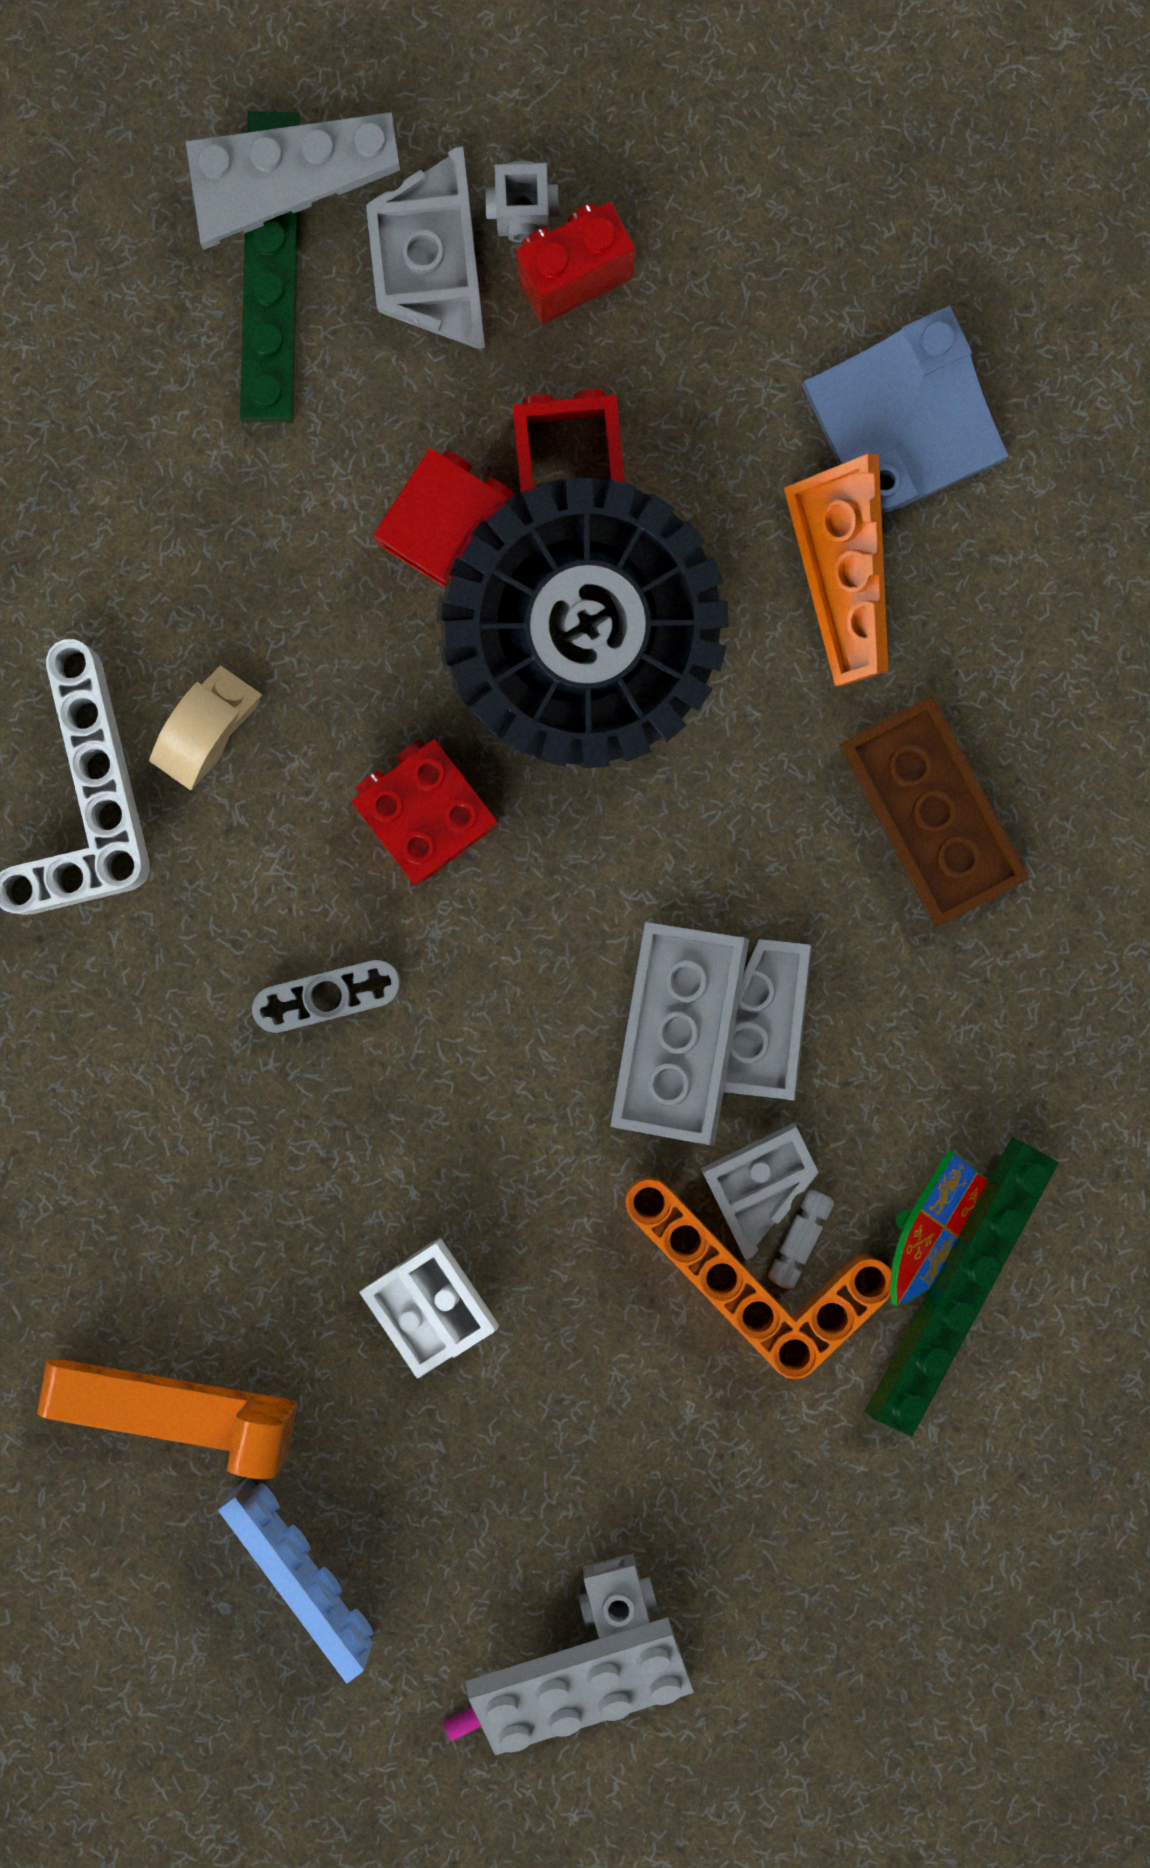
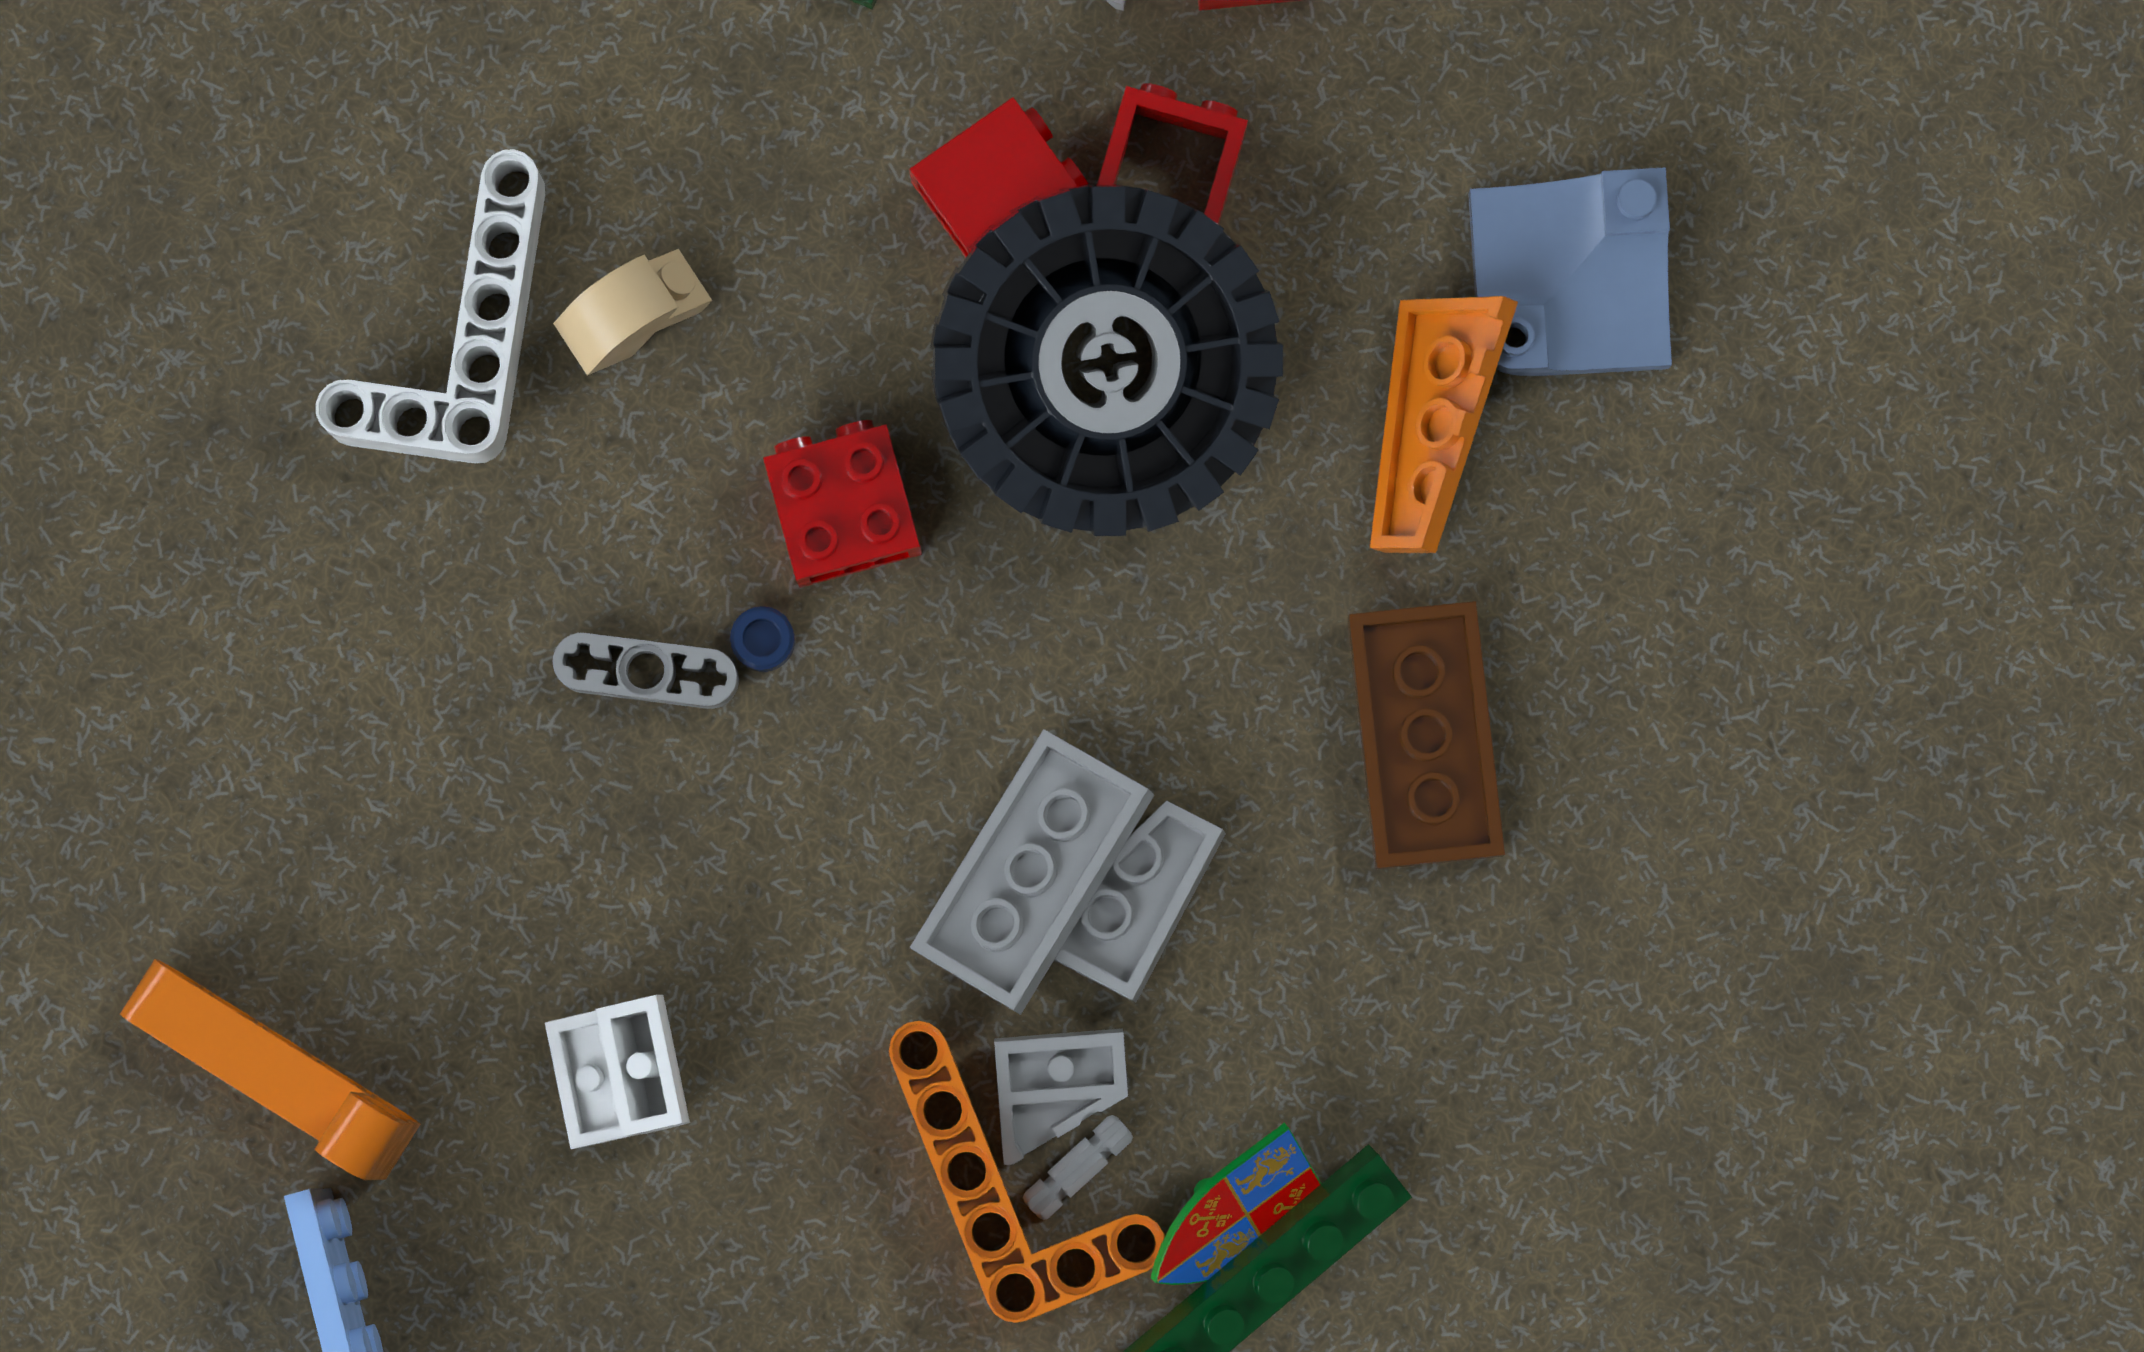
camera: 20 degrees right, 5 degrees down
(404, 937) = (762, 639): none -> dark blue tile

